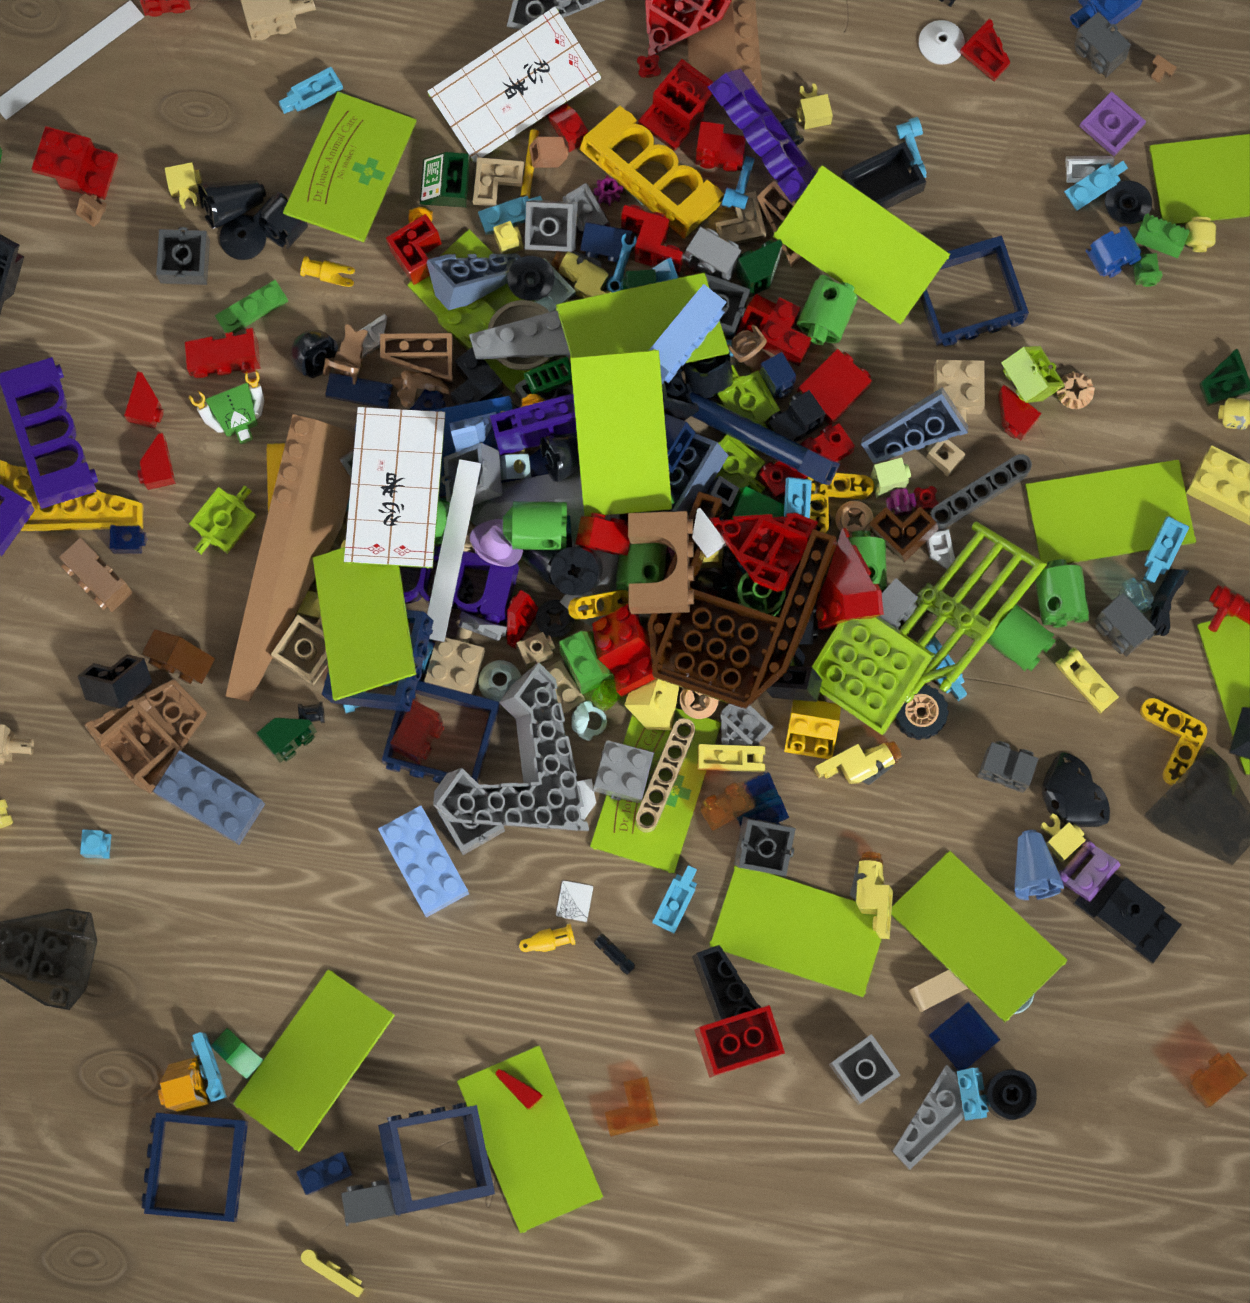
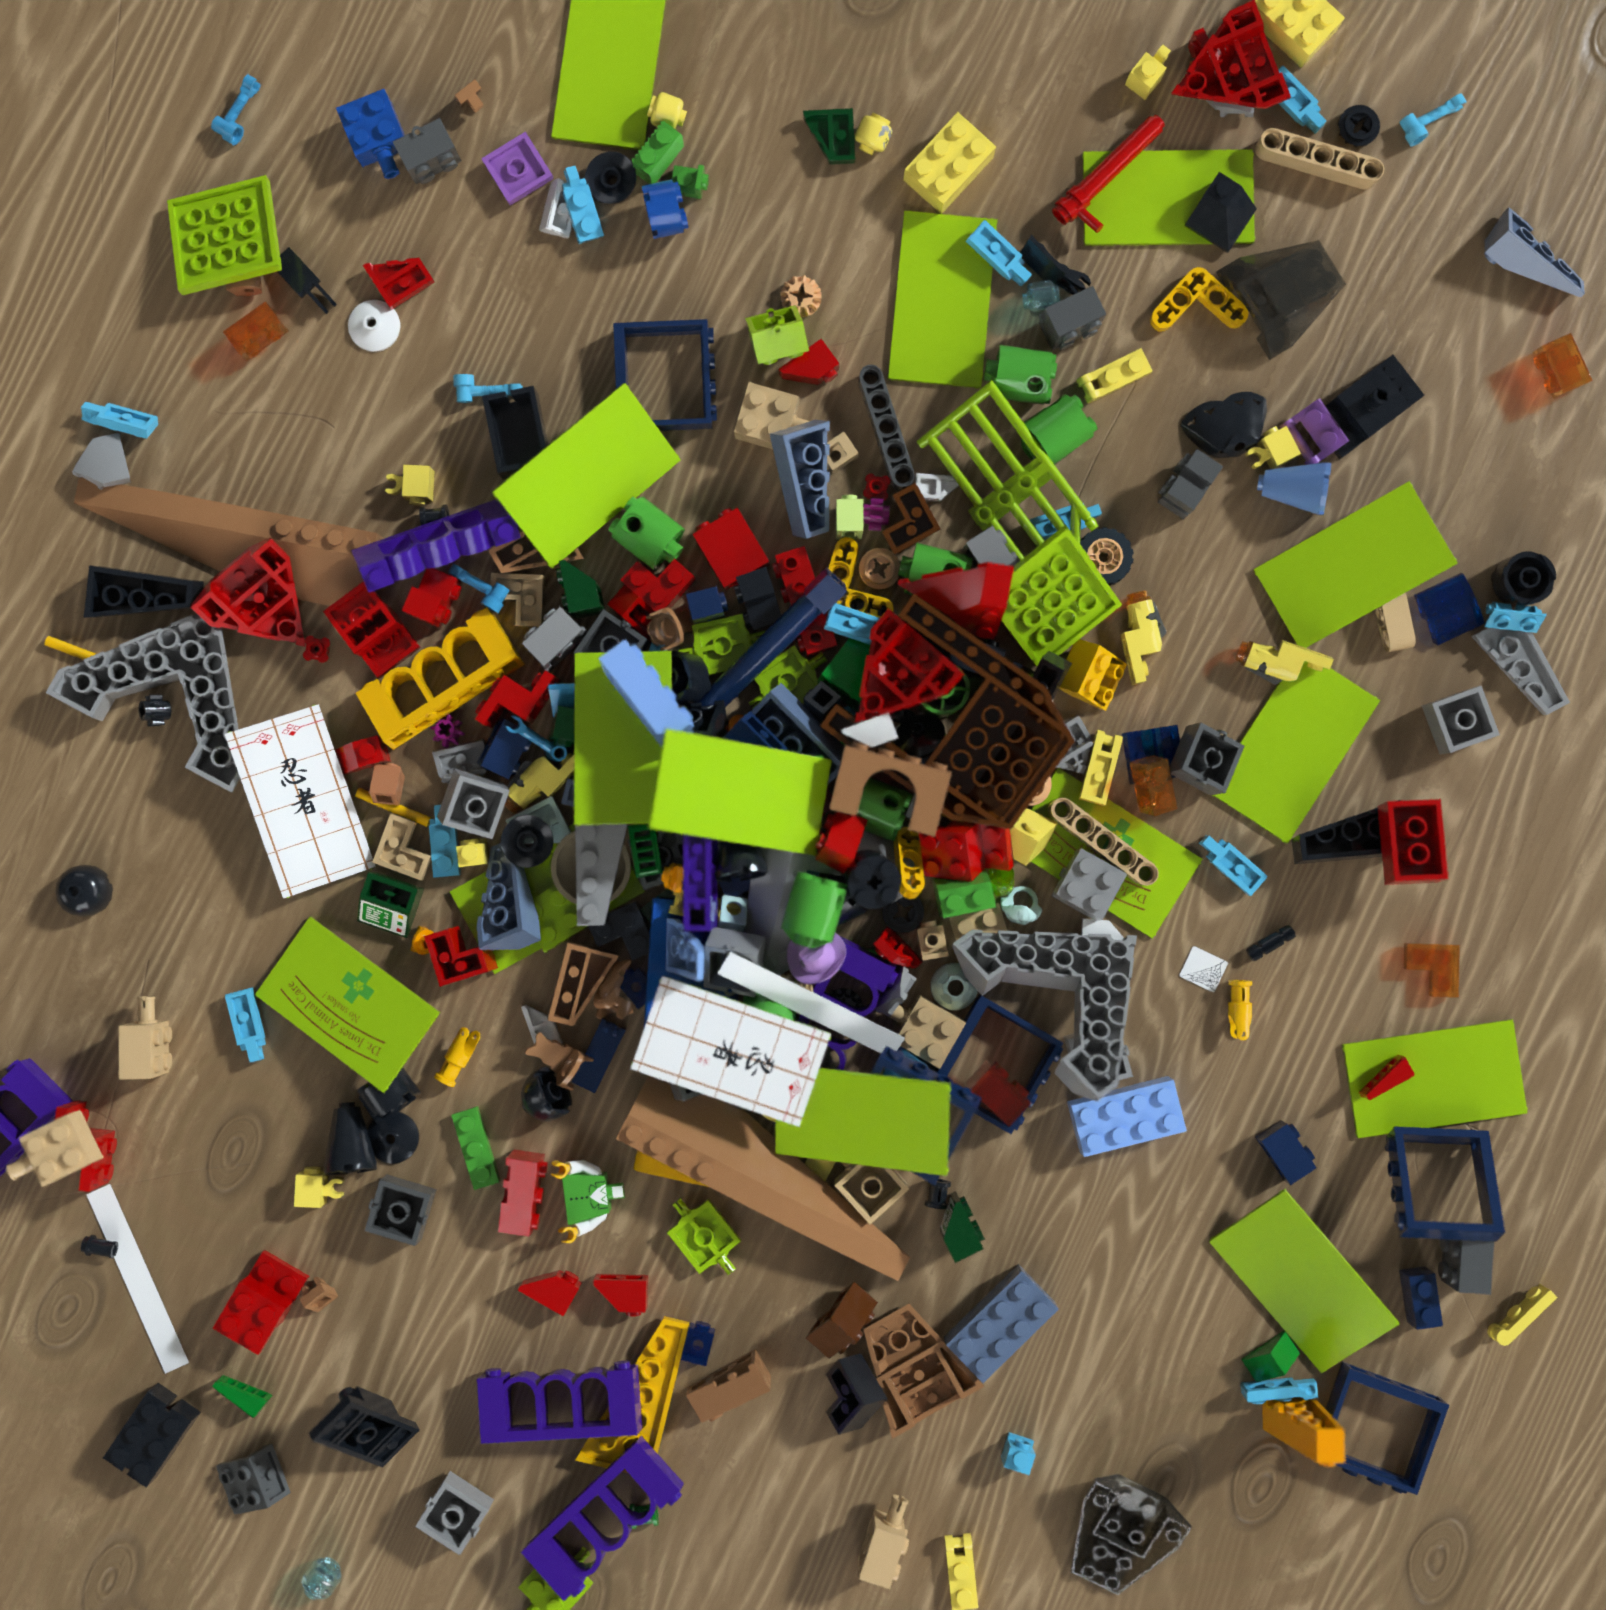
camera: 70 degrees left, 10 degrees up
(89, 16) = (101, 1247): none -> black pin
(428, 1015) = (1286, 1152): none -> dark blue brick

